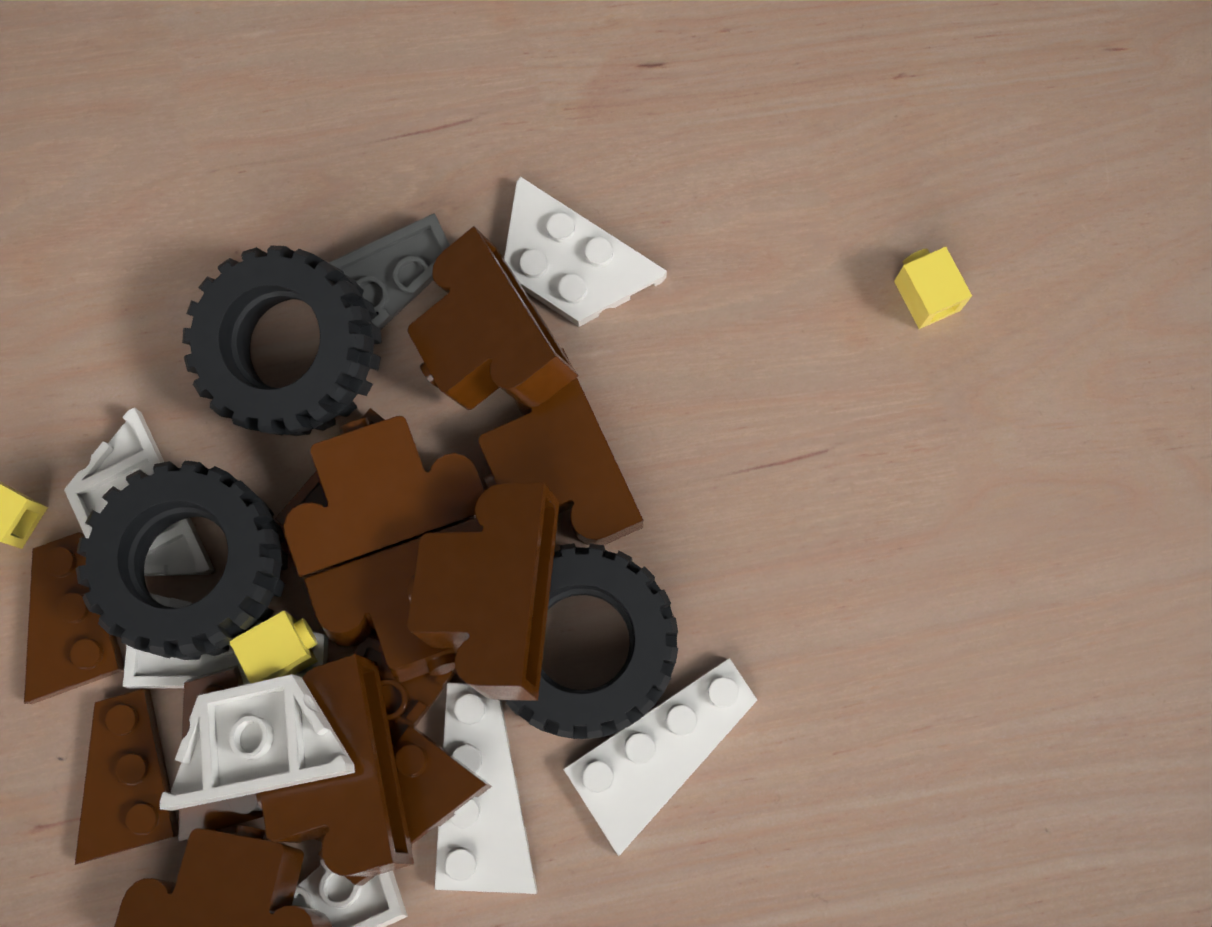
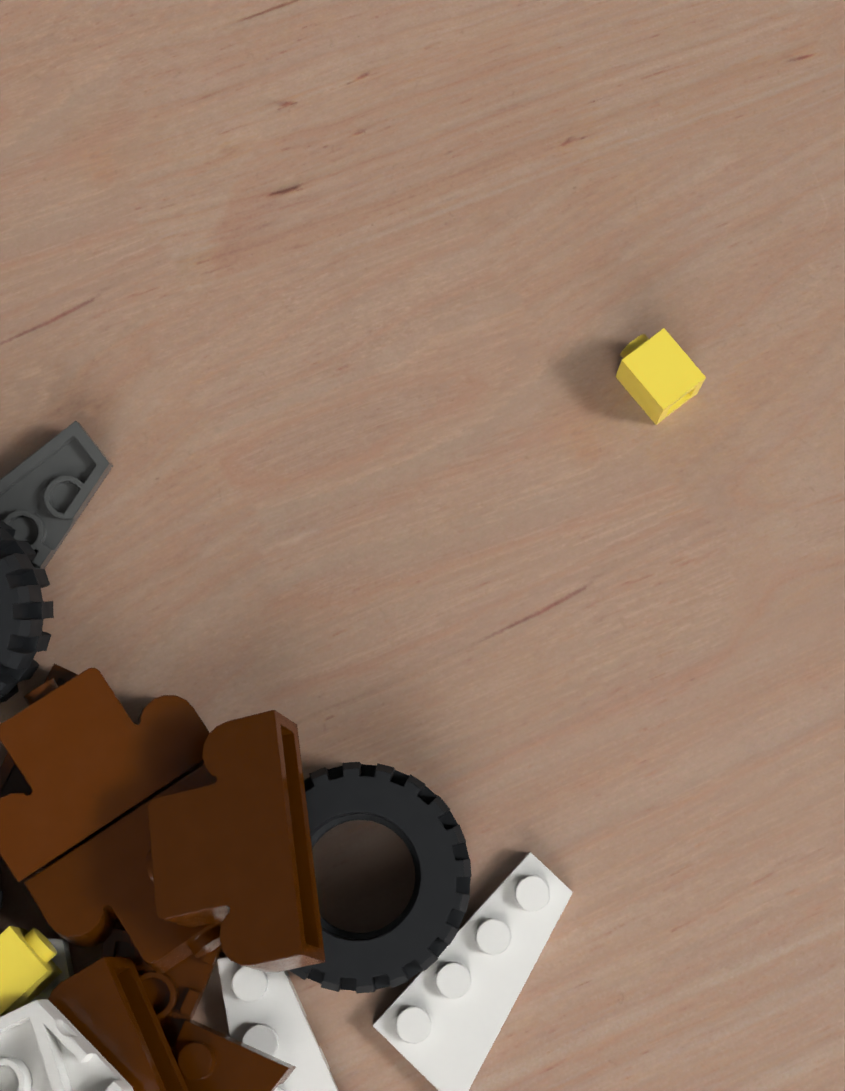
camera: 15 degrees left, 0 degrees up
(486, 331) = (167, 544): reddish brown brick -> none
(570, 259) = (244, 436): white wing -> none
(570, 454) = (285, 663): reddish brown brick -> none

